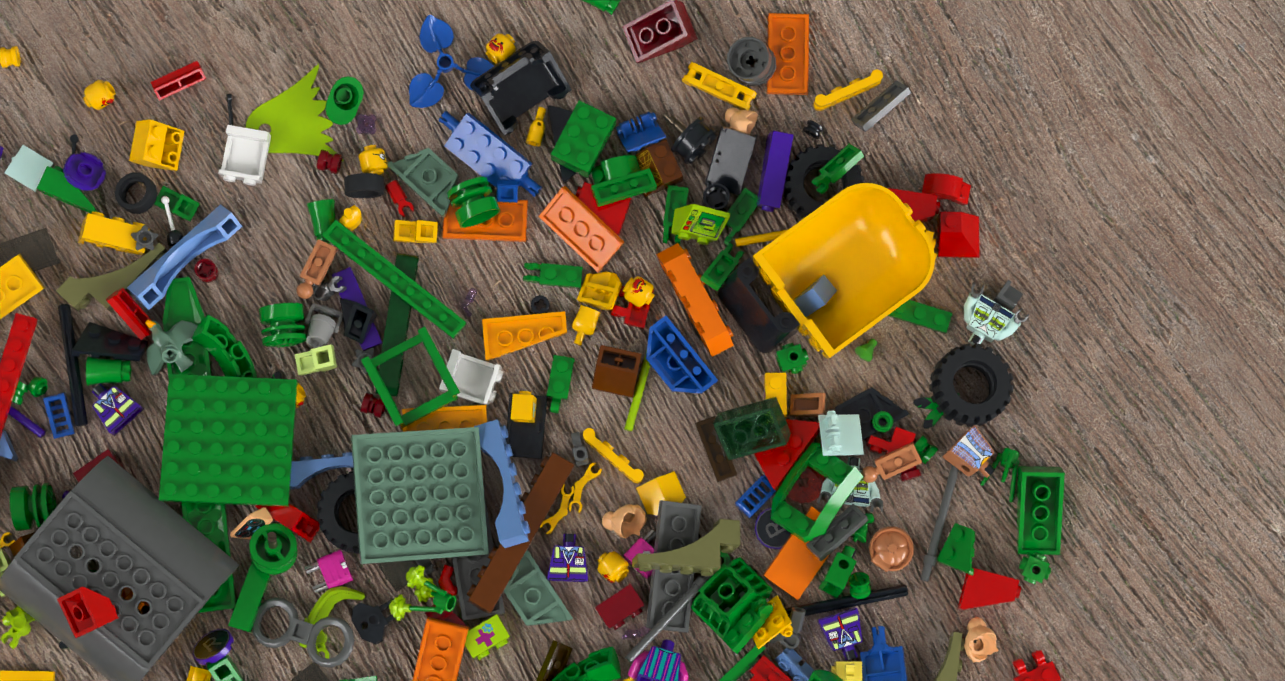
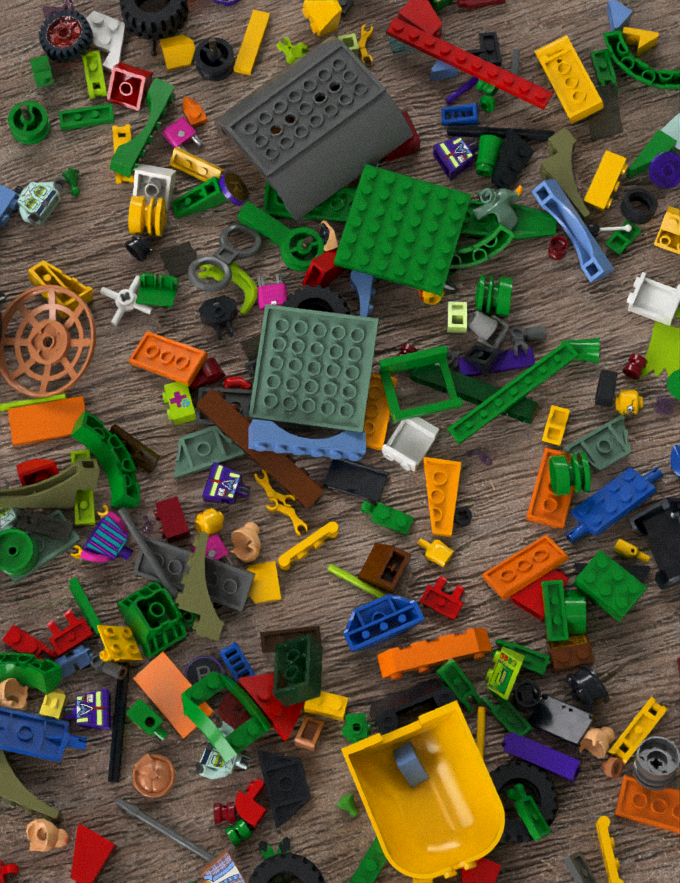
camera: 110 degrees right, 10 degrees down
(31, 507) = (390, 73): green wheel -> none
(86, 610) = (282, 85): red slope -> none
(130, 312) = (533, 178): red piece -> none
(144, 232) = (600, 201): dark grey plate -> none
(316, 268) = (538, 331): nougat plate -> none
(351, 218) = (578, 372): yellow piece -> none
(398, 196) = (590, 418): red bar -> none
(424, 590) = (234, 361): lime plant -> none
(507, 191) = (575, 509): blue tile -> none
(523, 407) = (371, 478): yellow brick -> none
(555, 275) = (487, 537): green hinge -> none
(579, 451) = (318, 518): dark grey bar -> none
(600, 290) = (465, 571): yellow slope -> none
(638, 291) = (452, 600): yellow head -> none
(641, 135) = (604, 644): blue hinge -> none
(748, 624) = (122, 624): green hinge -> none
(762, 103) = (613, 767): none -> nougat tile
(813, 129) = (577, 809): black bush -> none
(837, 532) = (182, 727): dark grey plate -> none
(840, 434) = (271, 753): light aqua hinge -> none
(859, 585) = (129, 736): green wheel -> none
(861, 533) = (180, 753): green piece -> none
(889, 421) = (274, 791): green plate -> none
(892, 463) = (230, 794): nougat plate -> none
(959, 549) = (135, 840): green wing -> none

